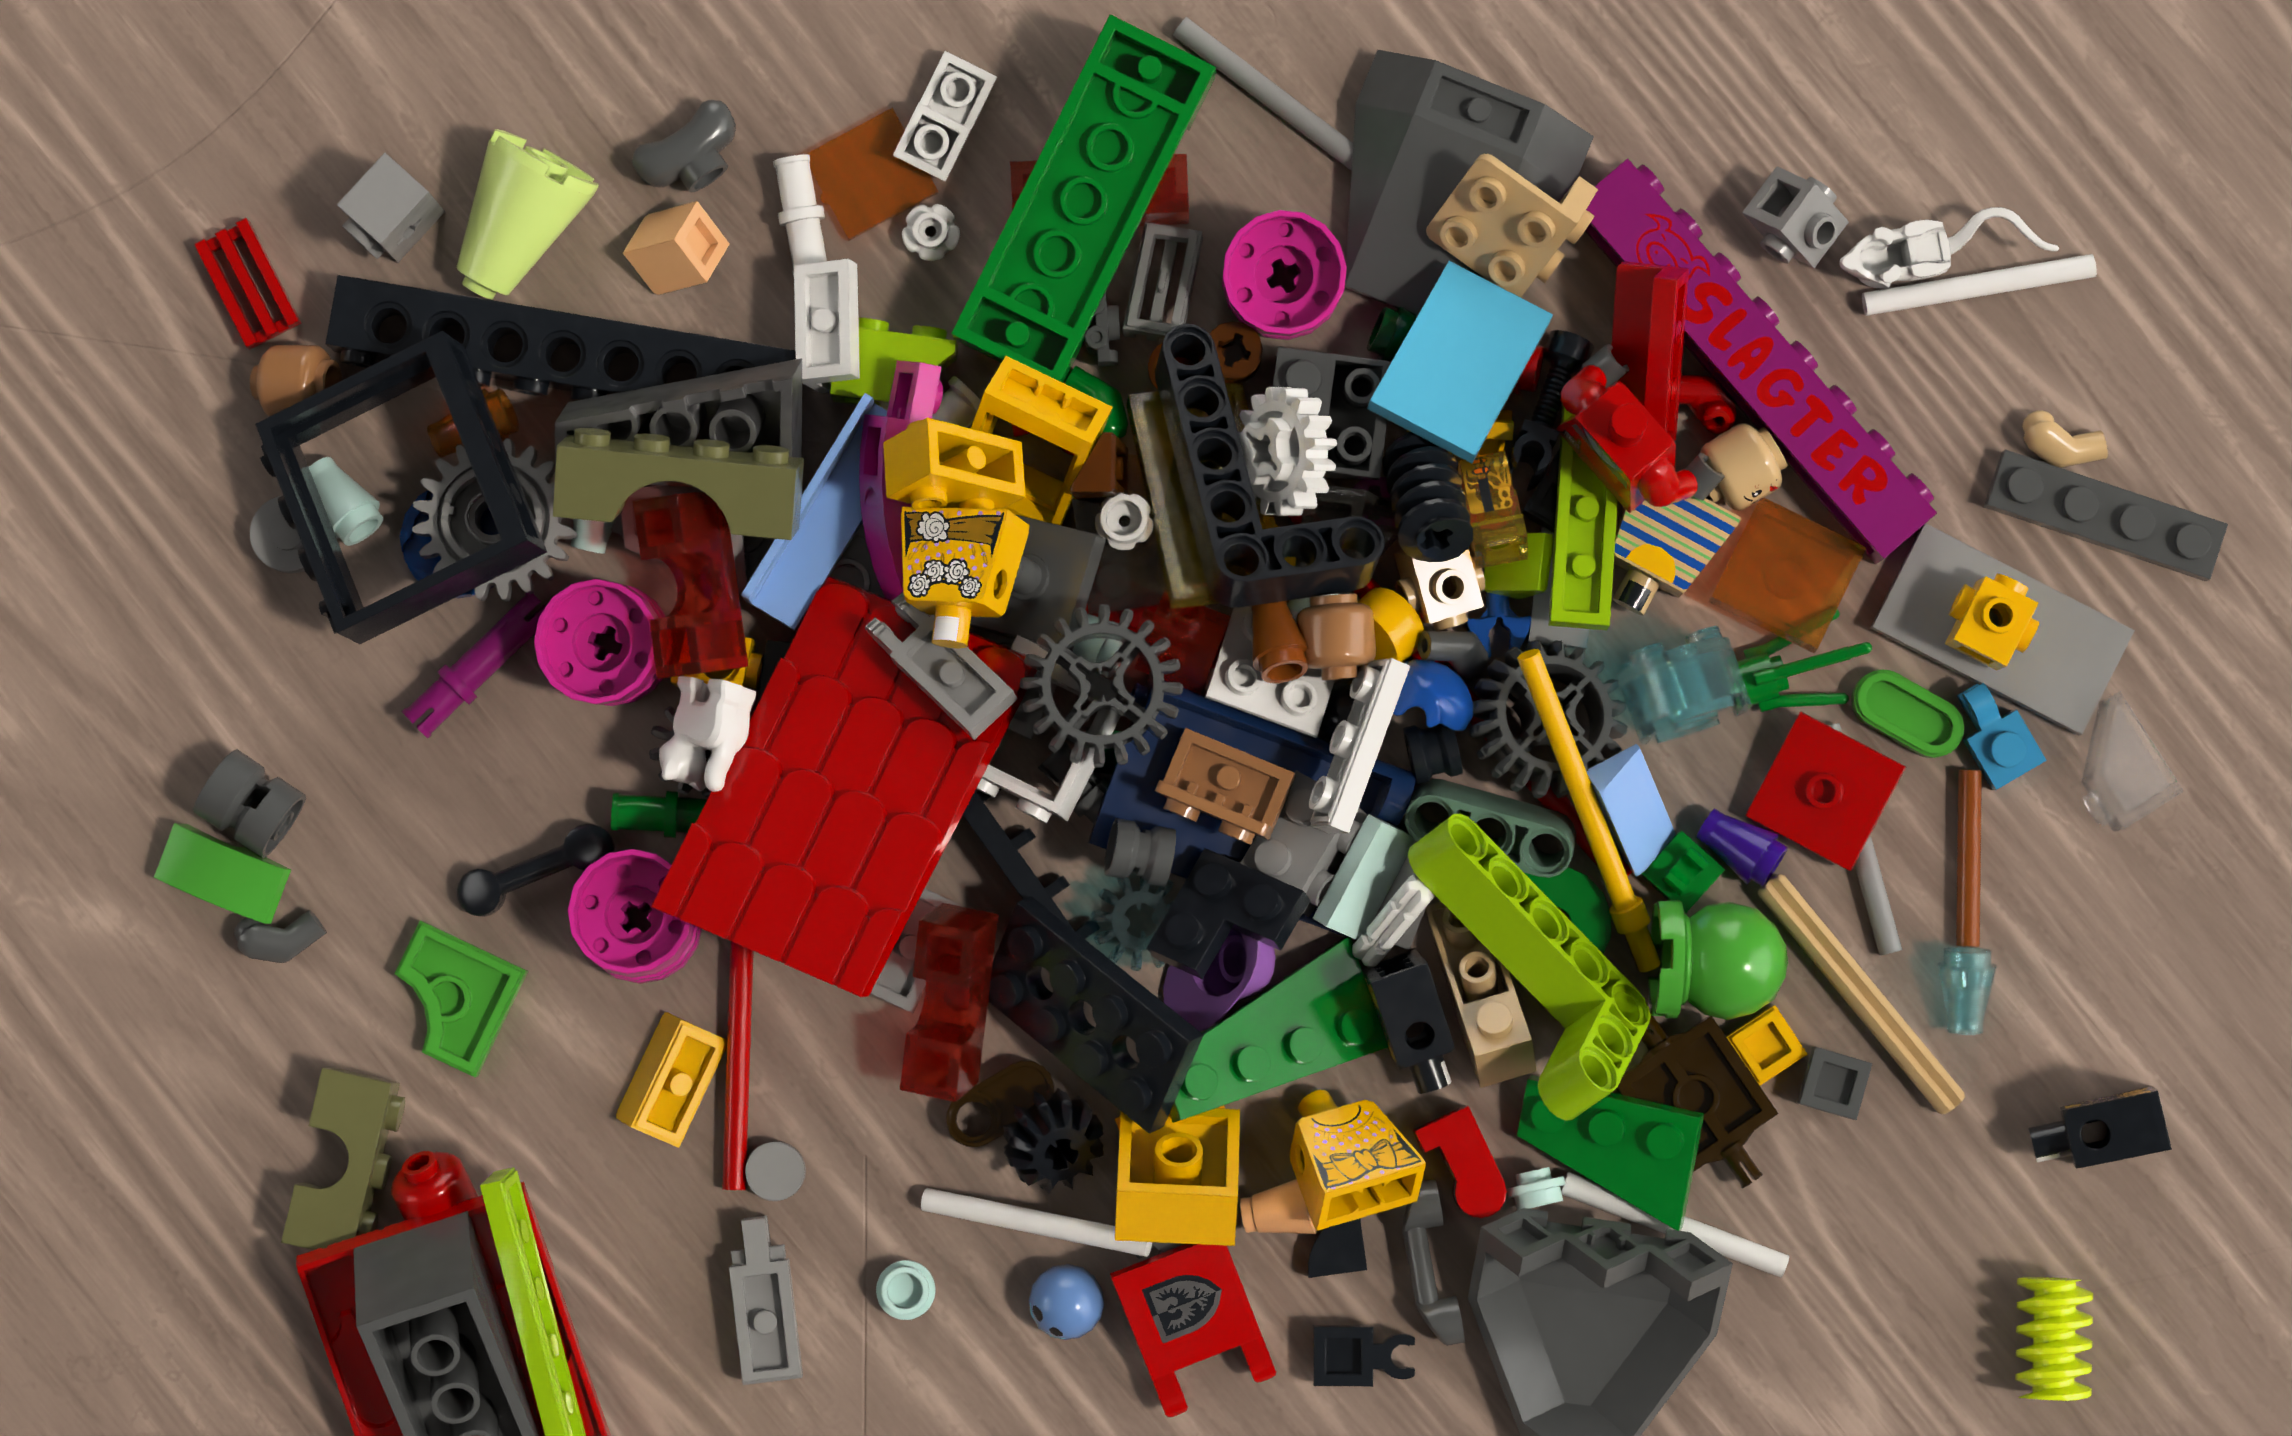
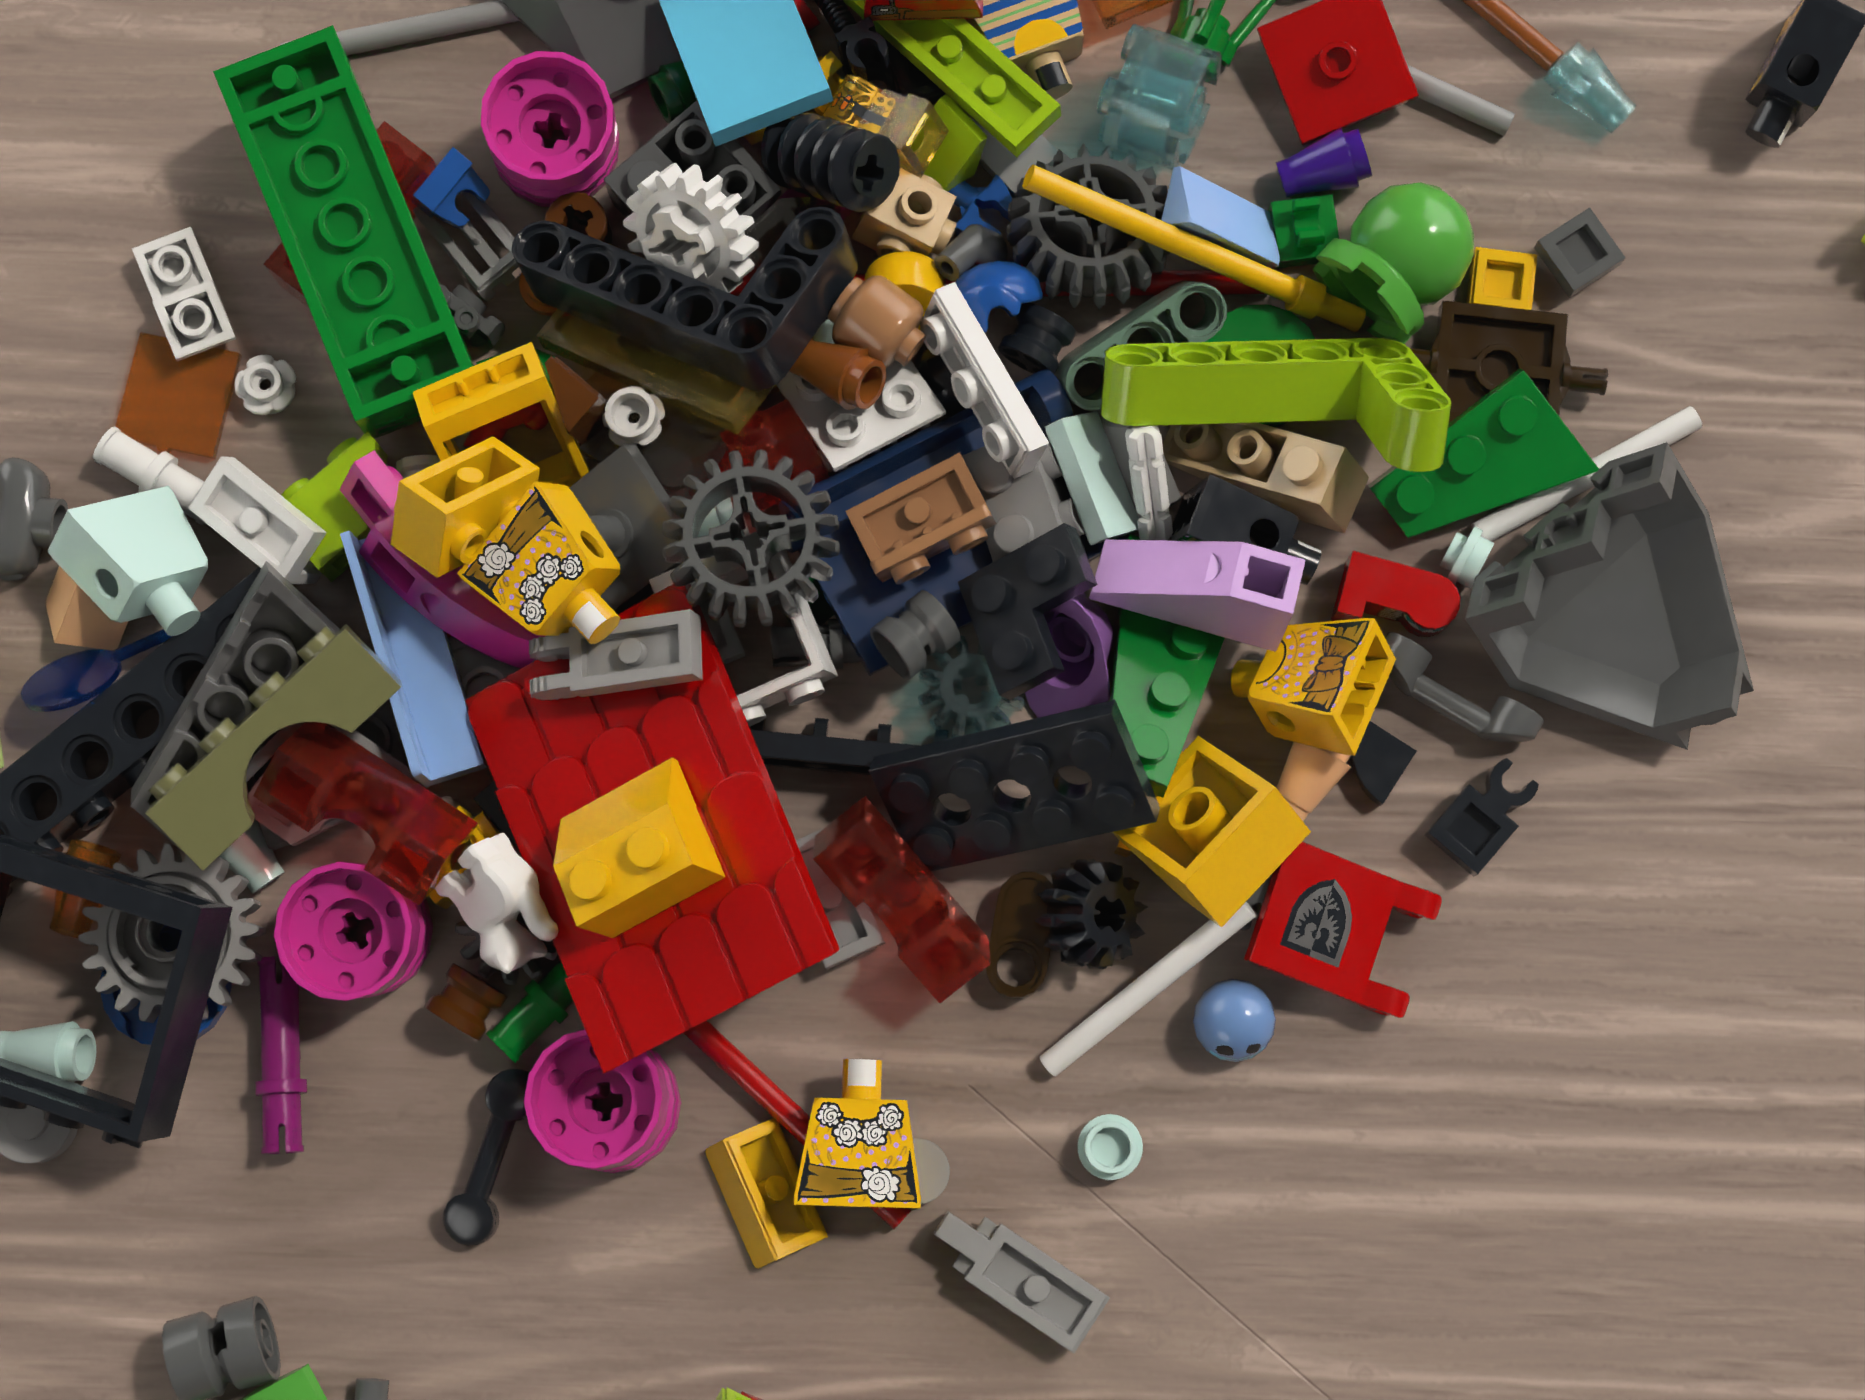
camera: 45 degrees left, 5 degrees down
(462, 994) = (539, 1308): bright green tile -> none
(621, 295) = (81, 675): none -> clear blue piece
(623, 759) = (466, 1001): none -> reddish brown wheel
(727, 262) = (134, 558): none -> light aqua torso
(755, 1119) = (859, 1146): none -> torso
(817, 796) = (634, 852): none -> yellow slope
(1176, 236) = (444, 184): none -> blue tile
(1344, 1022) = (1203, 585): none -> lavender slope
(1861, 994) = (1527, 173): tan axle -> none

